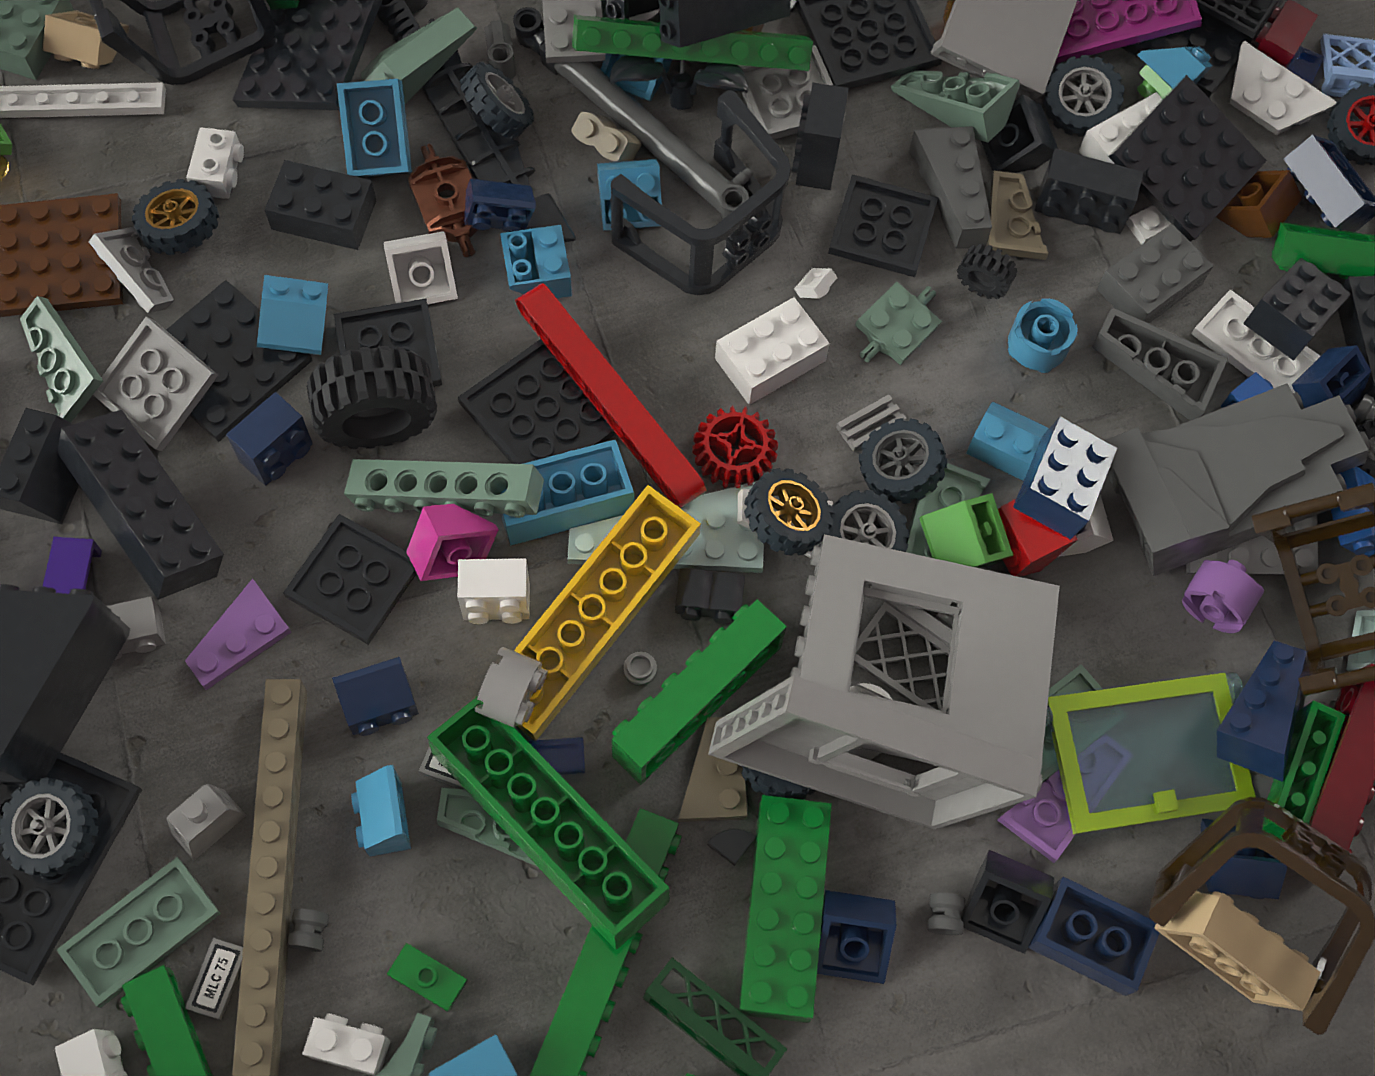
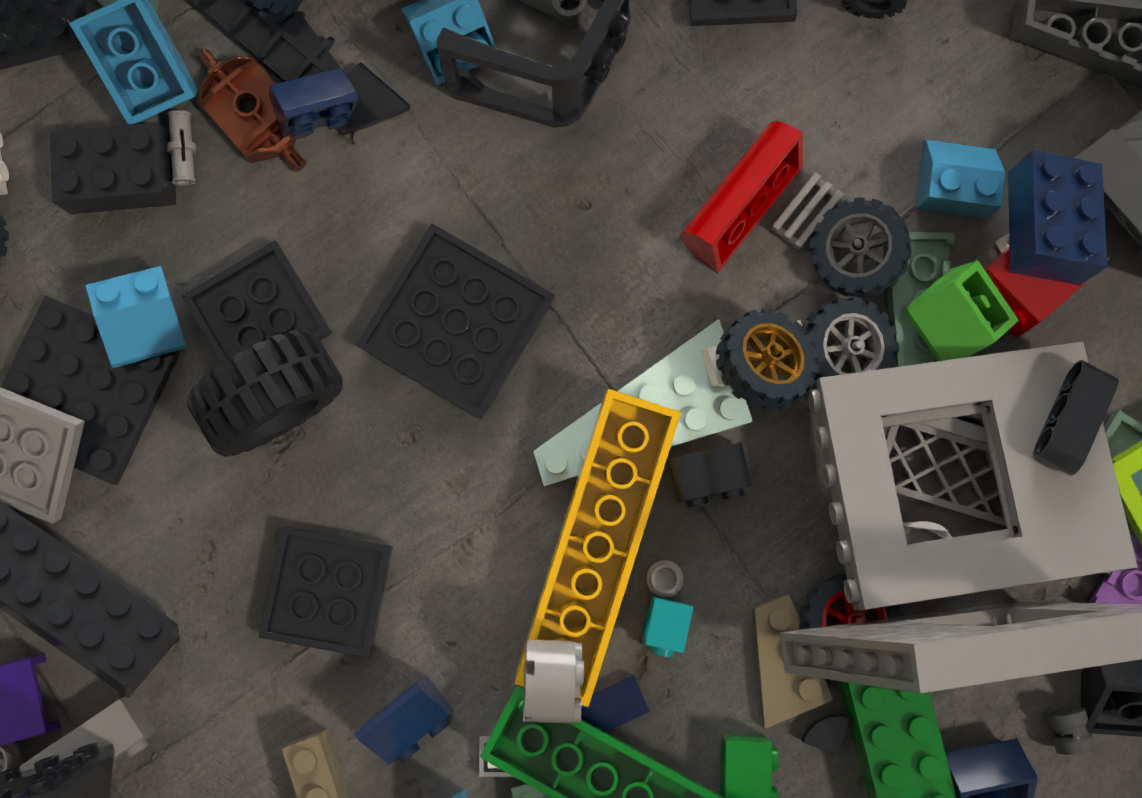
camera: 15 degrees left, 15 degrees up
(237, 637) = (230, 697): medium lavender wing -> none
(270, 439) = (172, 473): dark blue brick -> none
(375, 221) = (181, 126): none -> light grey pin
(390, 486) = (297, 475): sand green brick -> none
(421, 268) = (254, 206): white slope -> none
(445, 536) = (414, 523): dark pink slope -> none
(493, 590) = (481, 557): white brick -> none
(537, 258) = (380, 154): dark azure slope -> none
(576, 491) = (512, 415): dark azure slope -> none
(611, 396) = (521, 286): red beam -> none
(624, 693) = (666, 626): none -> teal brick
(697, 691) = (740, 591): green brick -> none
(711, 438) = (691, 292): red gear -> none
(771, 350) = (674, 166): white brick -> none
(816, 283) = (692, 68): white plate -> none
(822, 390) = (745, 195): none -> red brick
(898, 323) = (797, 82): sand green plate -> none
(1026, 635) = (1075, 417): none -> black beam
(1042, 334) = (959, 44): dark azure brick -> none

